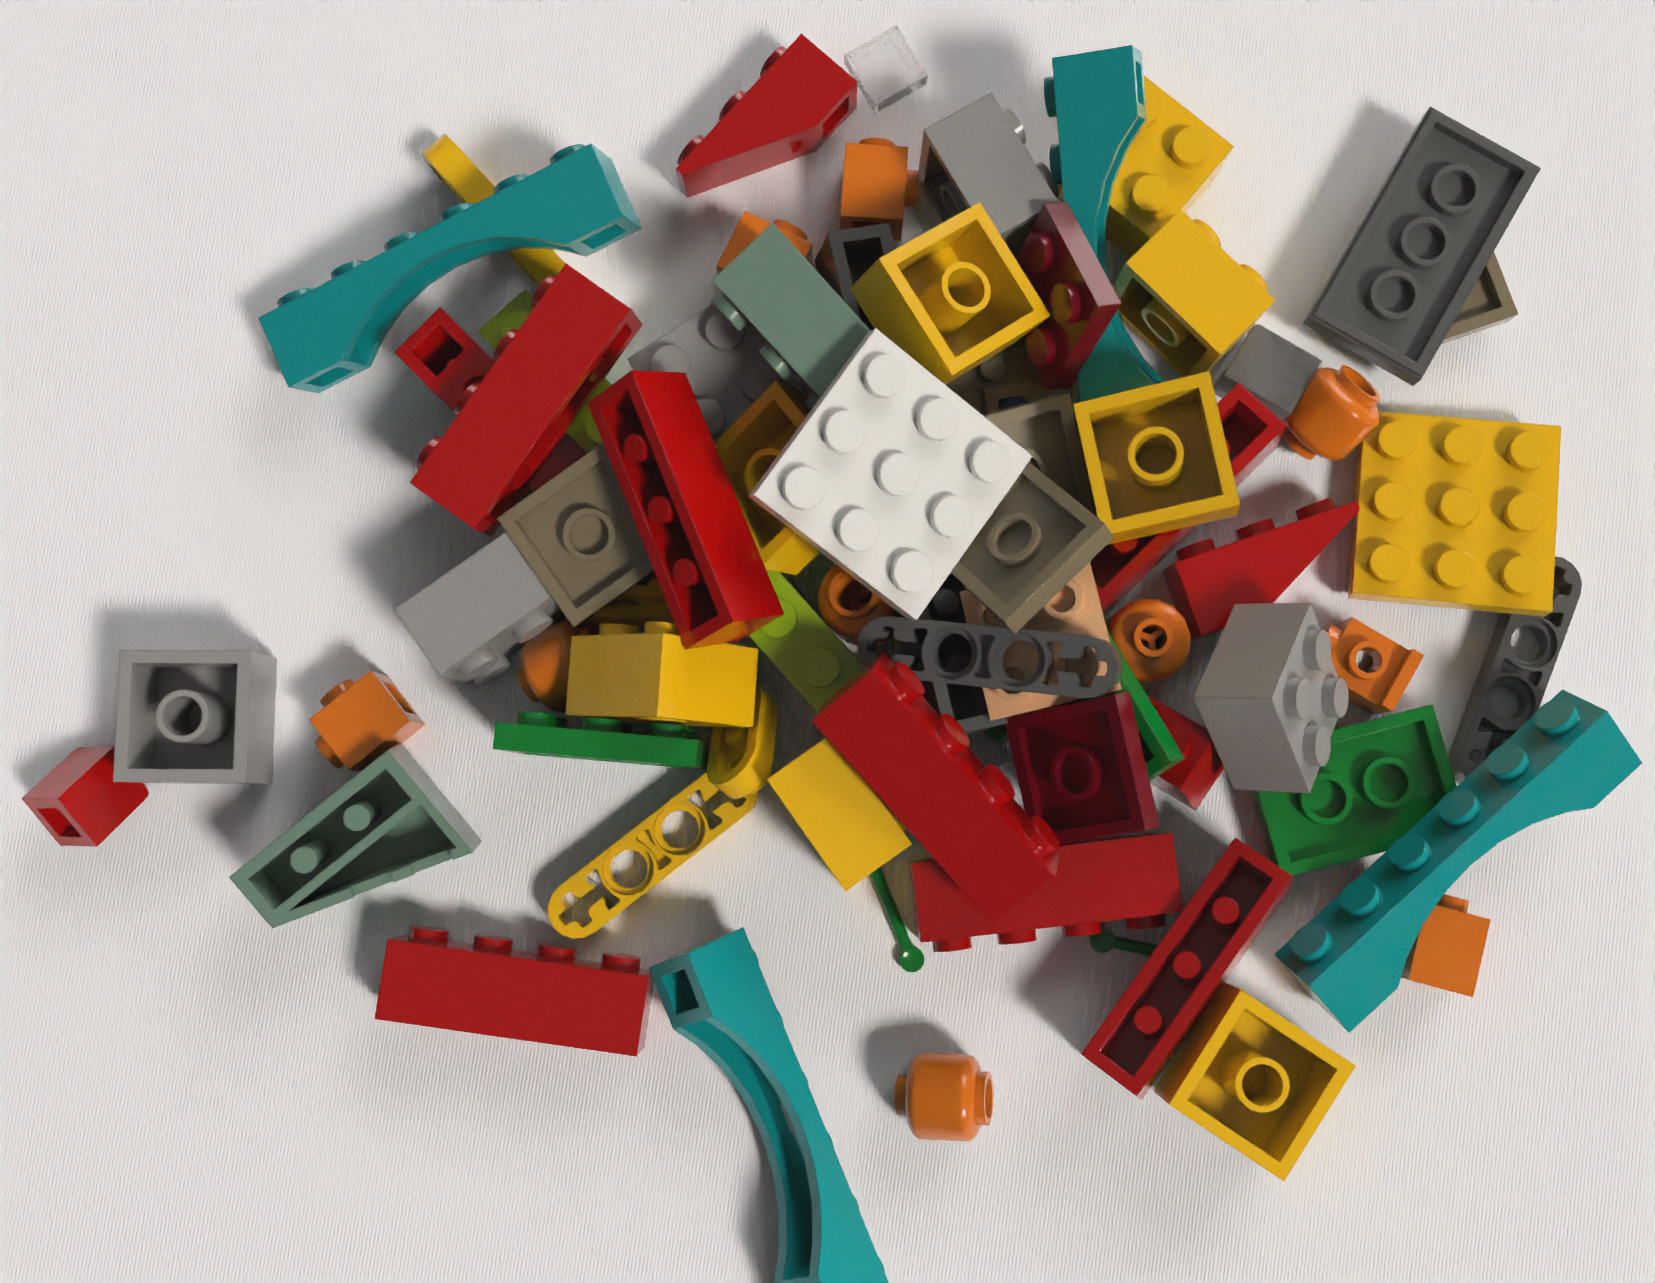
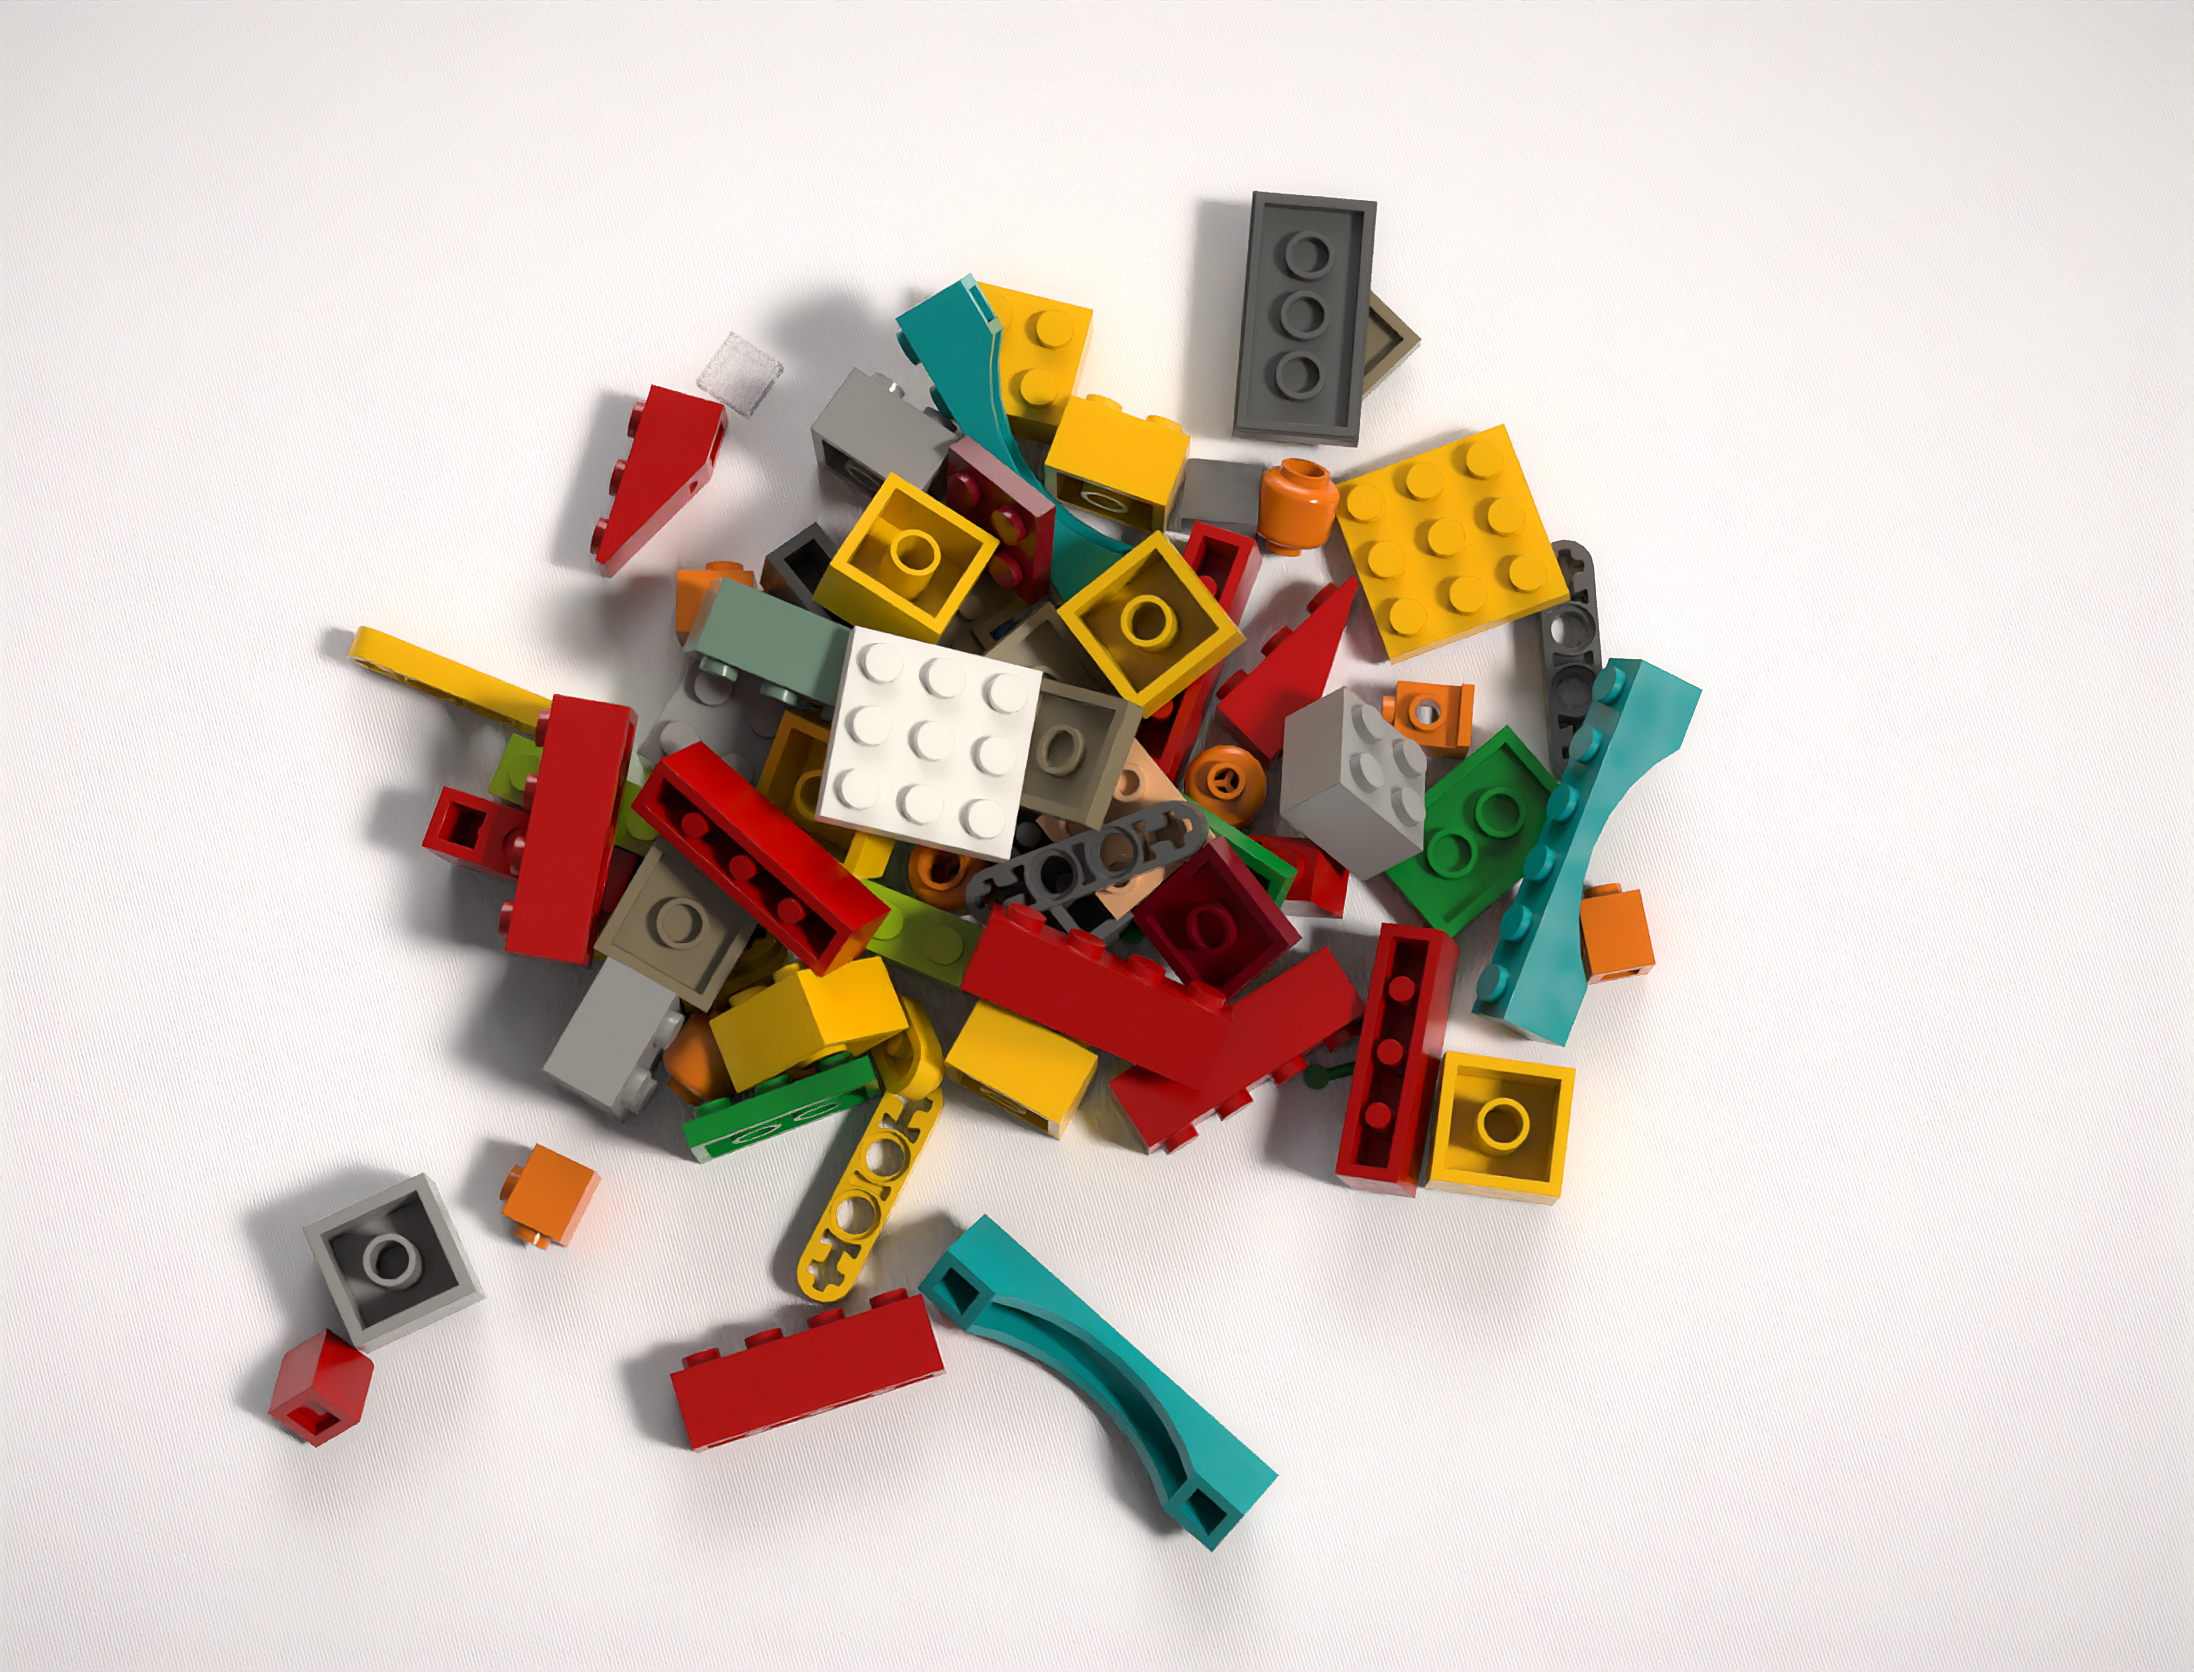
camera: 30 degrees left, 5 degrees down
(340, 325) = (351, 846): teal arch -> none
(358, 839) = (597, 1300): sand green wedge -> none
(877, 185) = (785, 491): orange brick -> none
(910, 957) = (1150, 1175): green hinge -> none
(945, 1096) = (1238, 1278): orange head -> none

